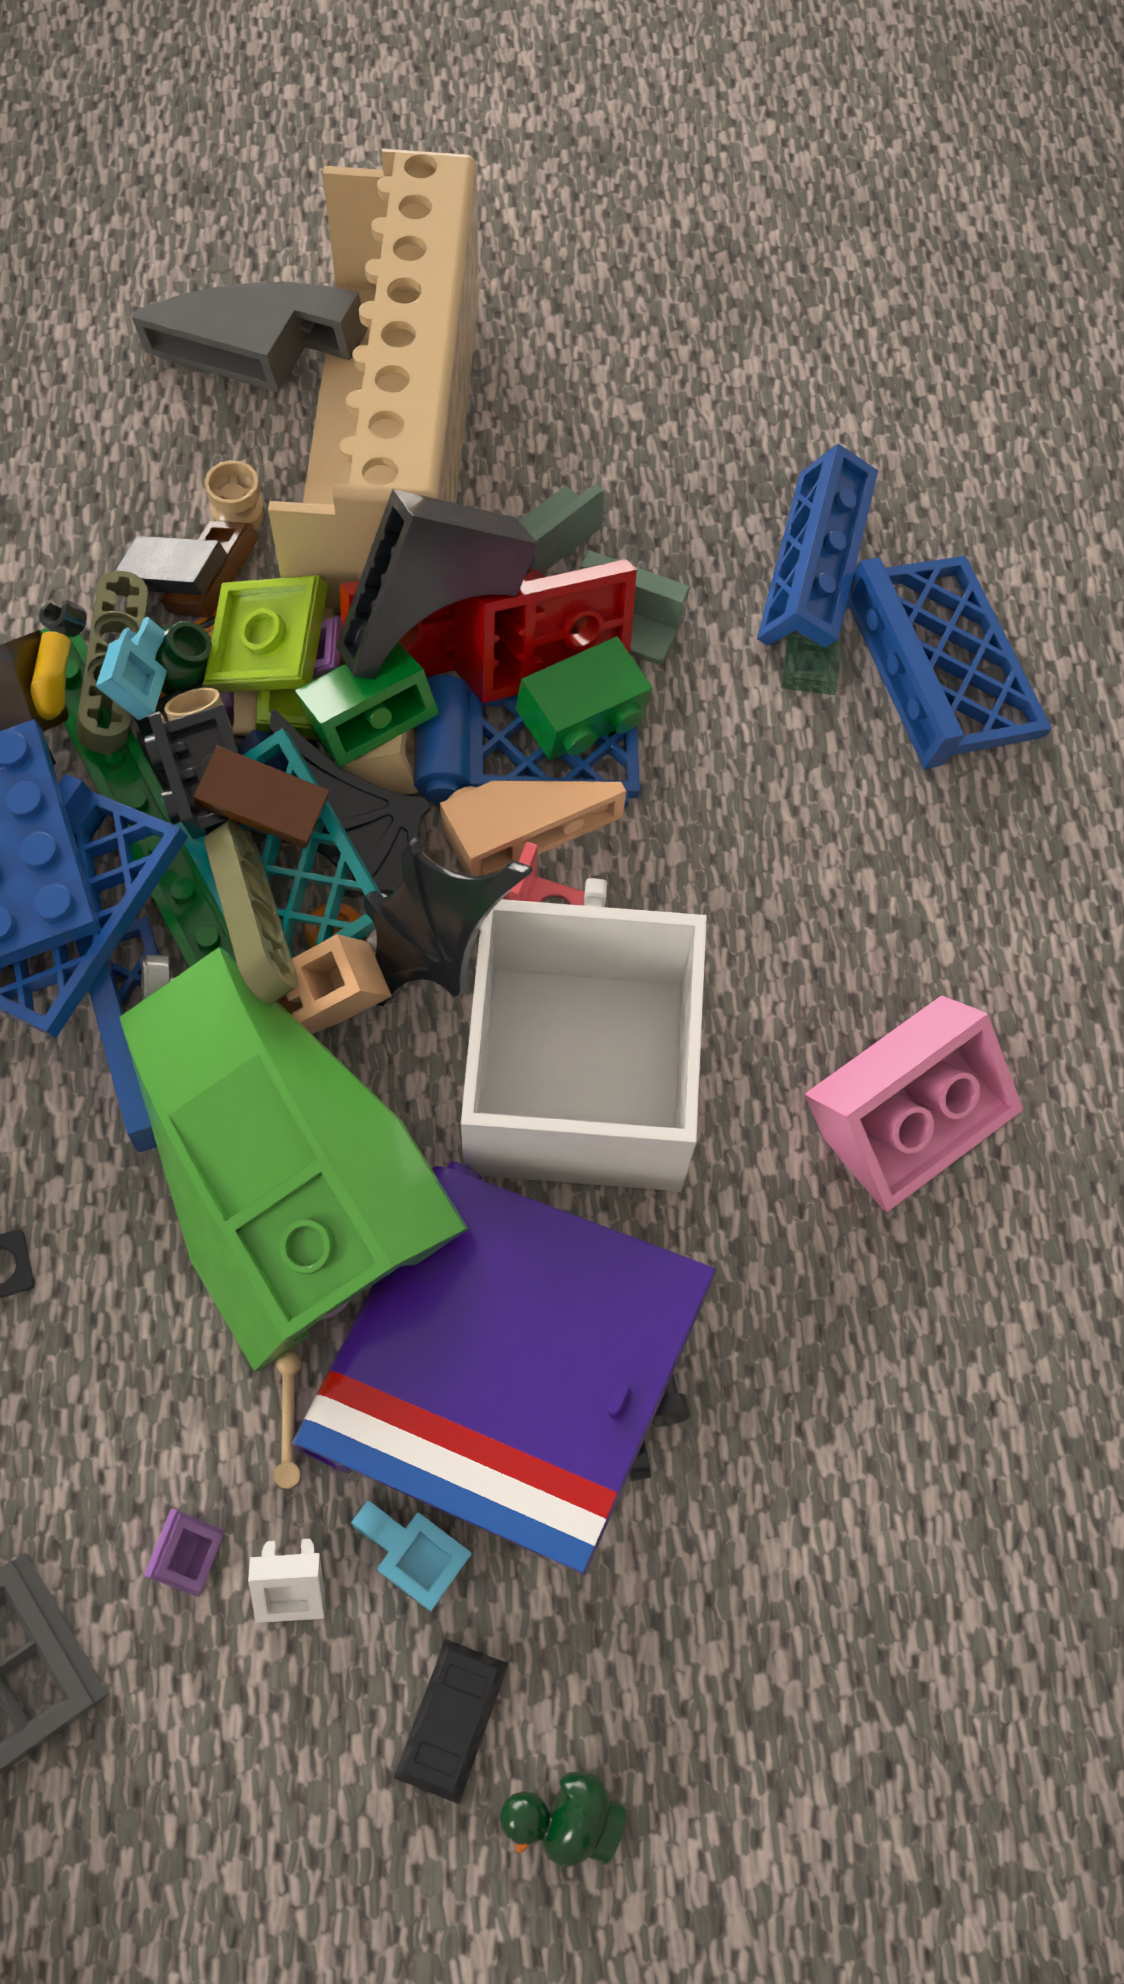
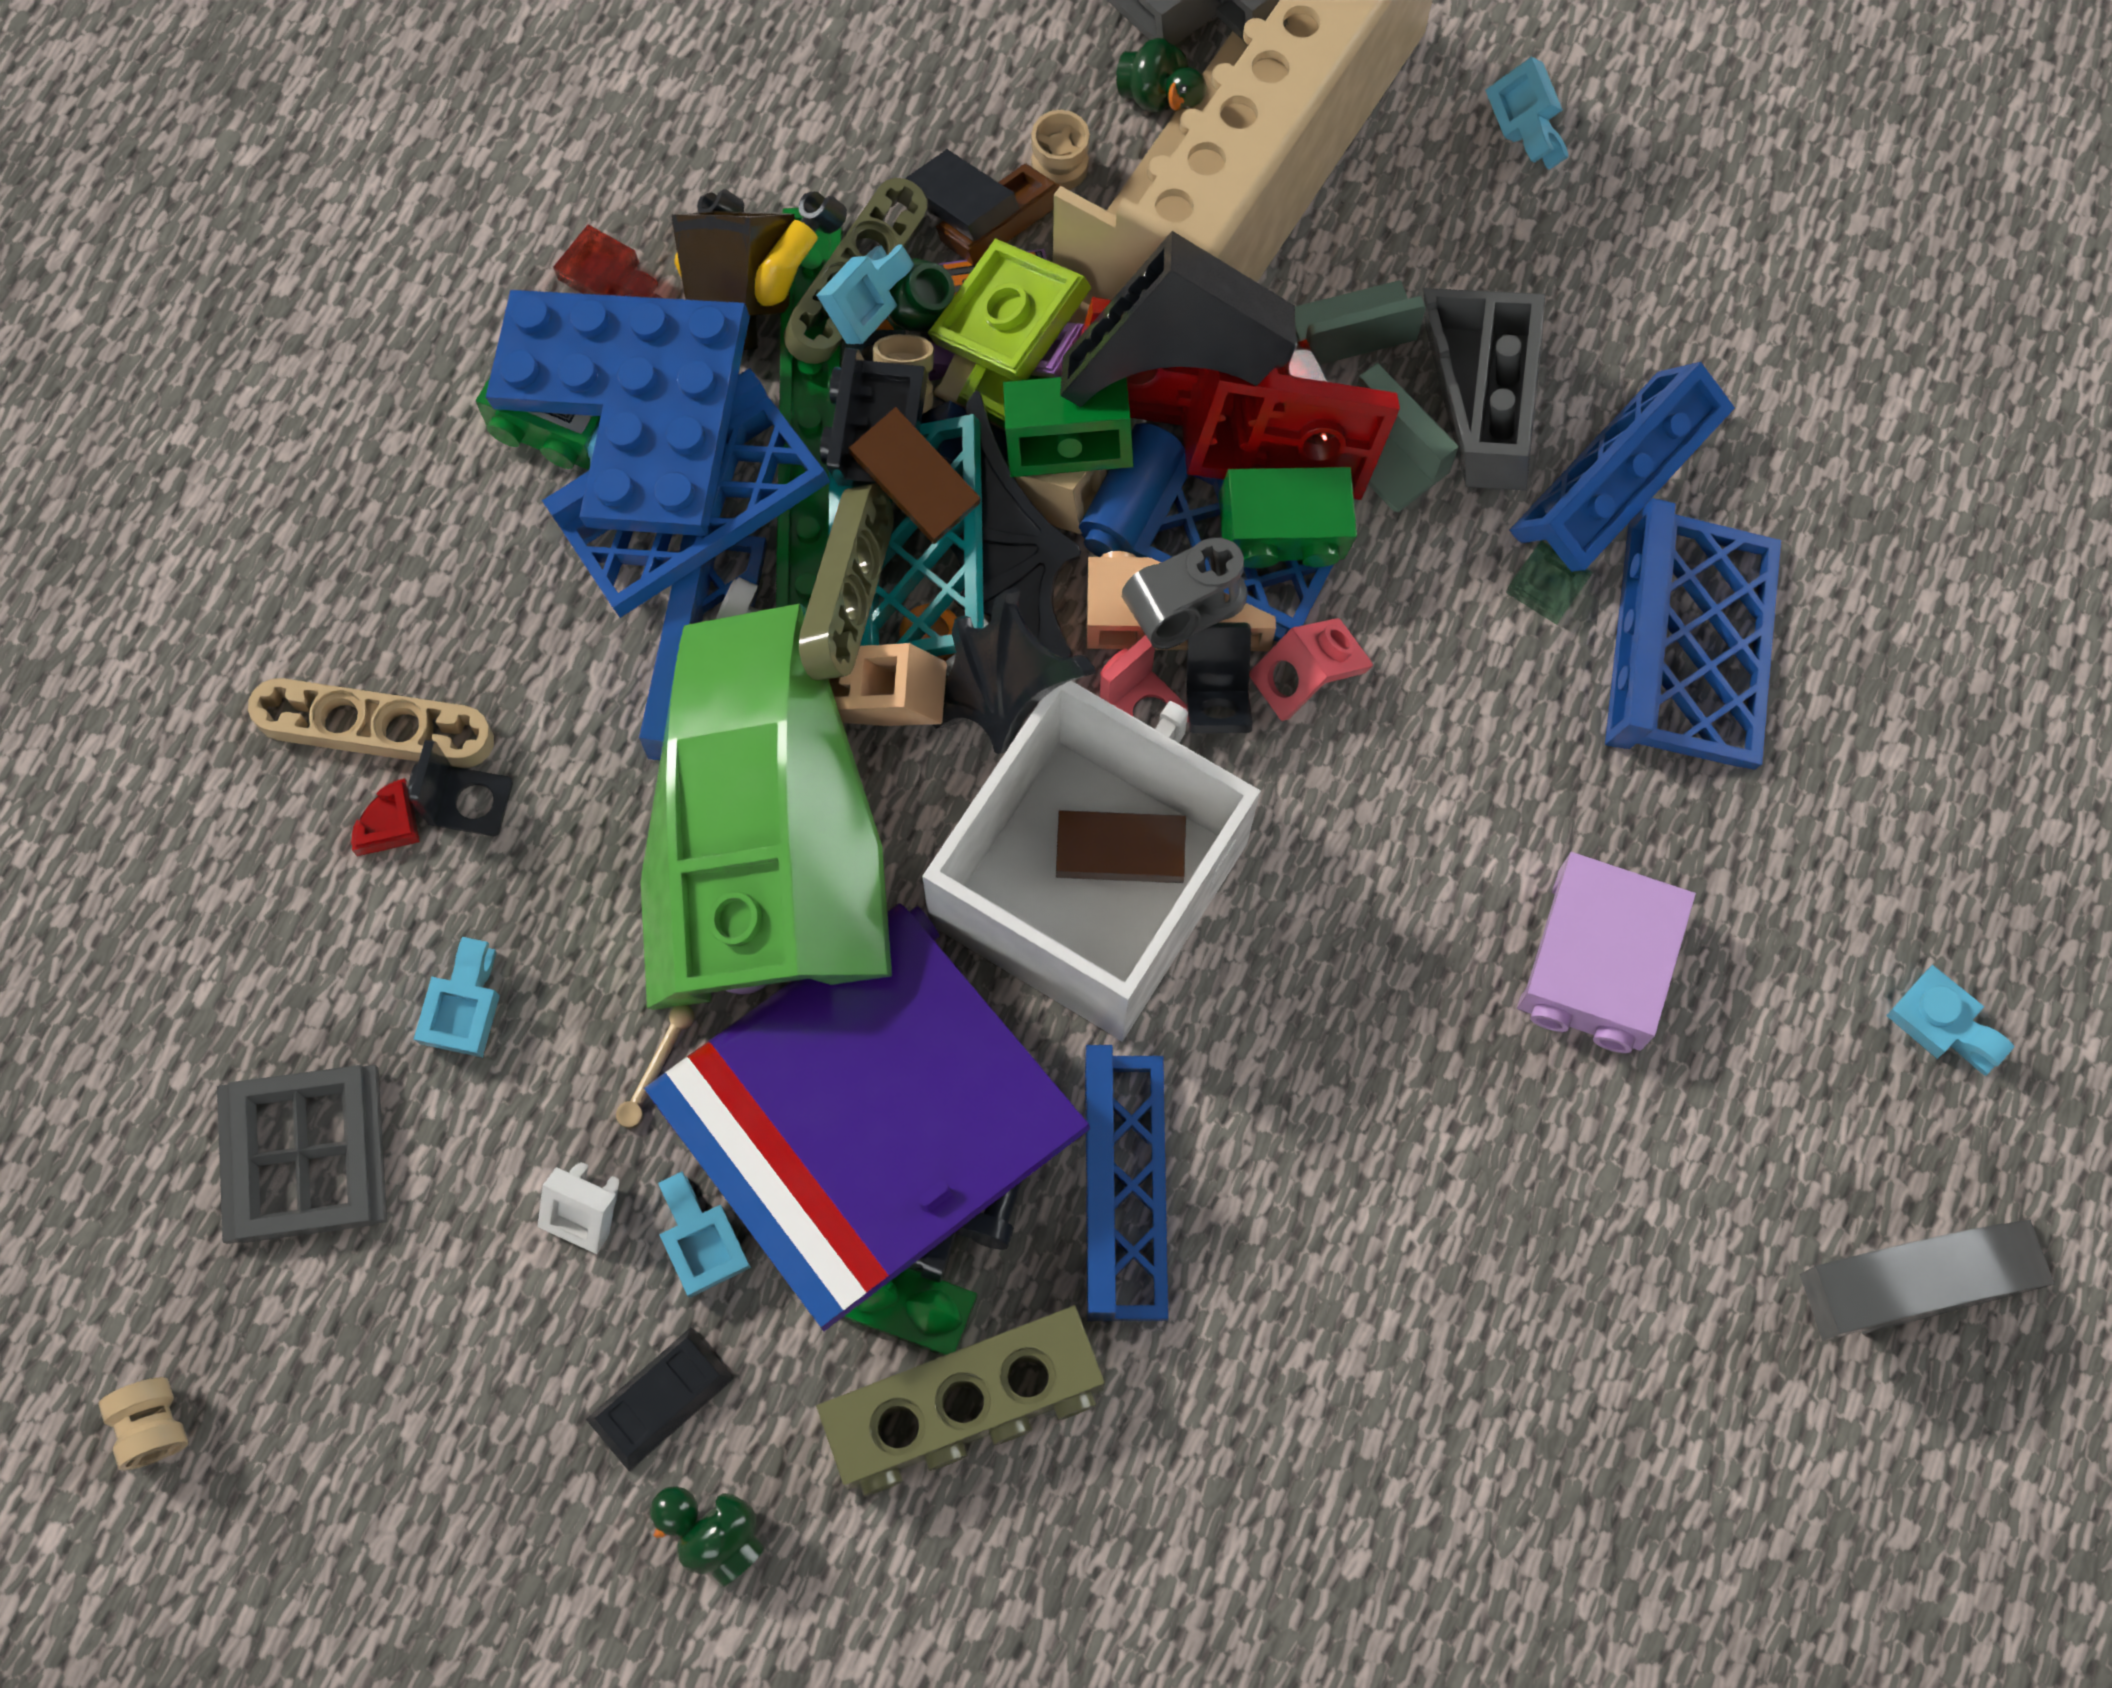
camera: 30 degrees right, 5 degrees up
(83, 1461) = (459, 1010): none -> medium azure plate
(184, 1553) = (506, 1135): medium lavender slope -> none
(286, 407) = (1159, 78): none -> dark green animal
(543, 790) = (1182, 597): none -> dark grey piece
(588, 319) = (1523, 107): none -> medium azure plate
(594, 1028) = (1121, 846): none -> reddish brown tile
(595, 849) = (1219, 677): none -> black bracket
(649, 1514) = (918, 1312): none -> green tile
(672, 799) = (1319, 654): none -> coral bracket
(681, 527) = (1488, 376): none -> dark grey wedge
(740, 1318) = (1100, 1186): none -> blue fence
(779, 1480) = (856, 1418): none -> olive brick
(916, 1100) = (1394, 1068): bright pink slope -> none
(1029, 926) = (1607, 954): none -> lavender panel

